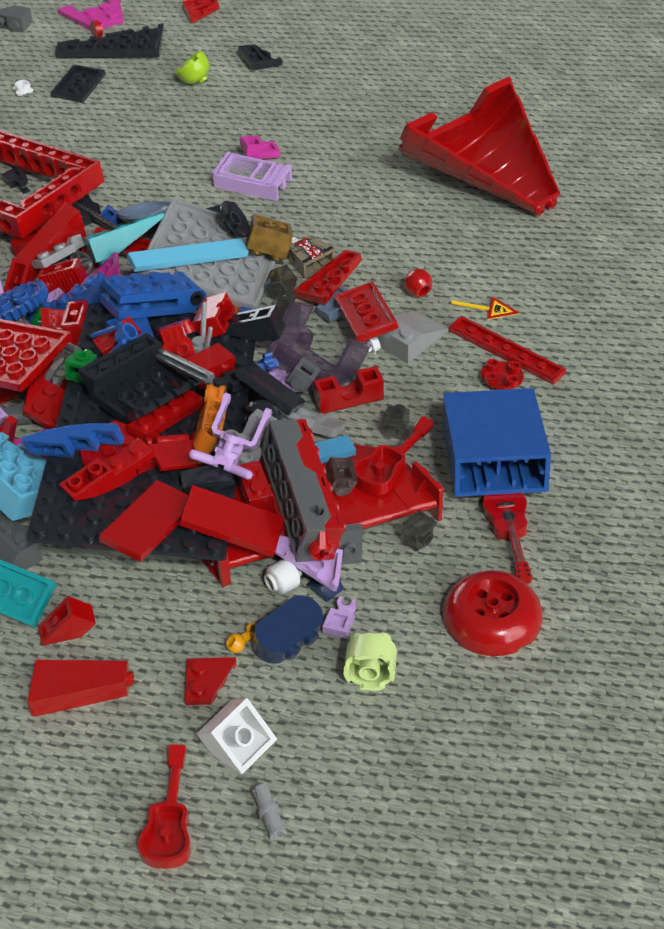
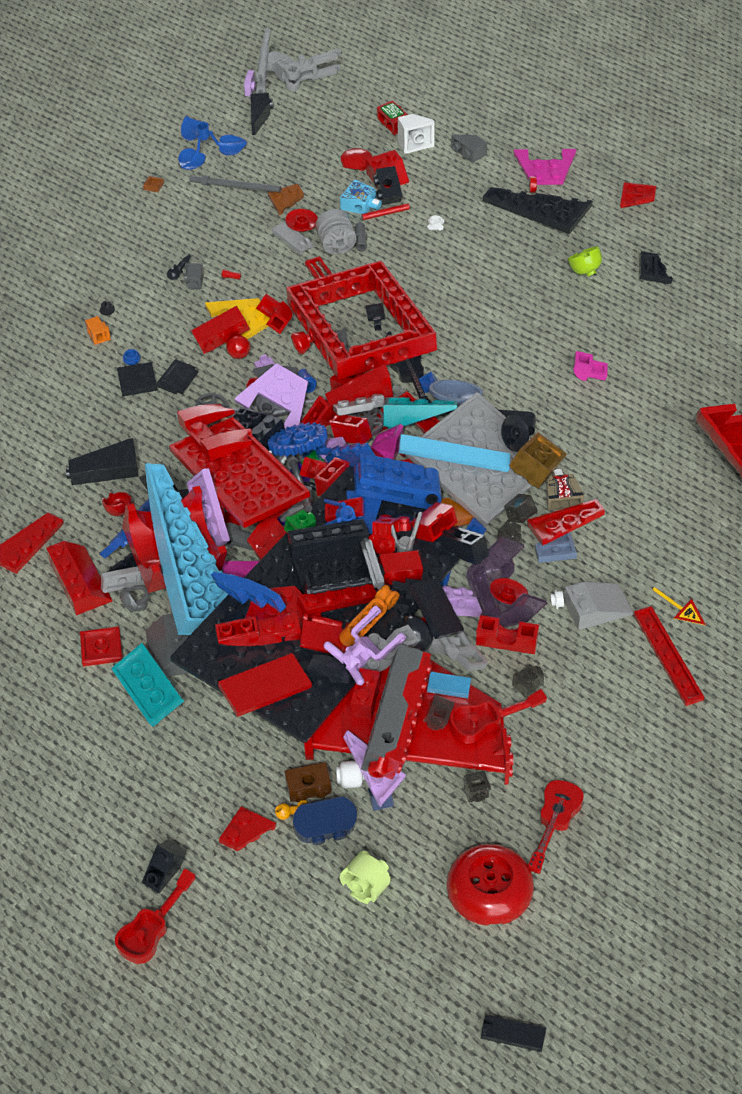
camera: 30 degrees right, 5 degrees up
(67, 622) = (175, 734): red slope -> none
(77, 683) = (151, 787): red slope -> none
(78, 83) = (484, 235): black tile -> none
(143, 754) = (163, 865): none -> black slope
(232, 521) = (327, 714): red tile -> none
(237, 735) = (236, 886): white slope -> none
(243, 604) = (314, 774): none -> reddish brown brick
(251, 176) = (566, 391): lavender door -> none
(267, 362) = (457, 581): blue plate -> none
(269, 811) = (221, 956): light grey pin -> none
(301, 380) = (472, 609): dark grey brick -> none
(321, 354) = (506, 590): none -> red dish
(340, 620) = (371, 832): lavender plate -> none
(352, 544) = (415, 772): dark grey plate -> none
(366, 311) = (566, 569): red tile -> none
(418, 282) = (634, 558): red piece -> none
(495, 442) = (587, 738): blue brick -> none
(502, 374) = (646, 677): red dish -> none
(616, 735) = (513, 1033): none -> black hinge

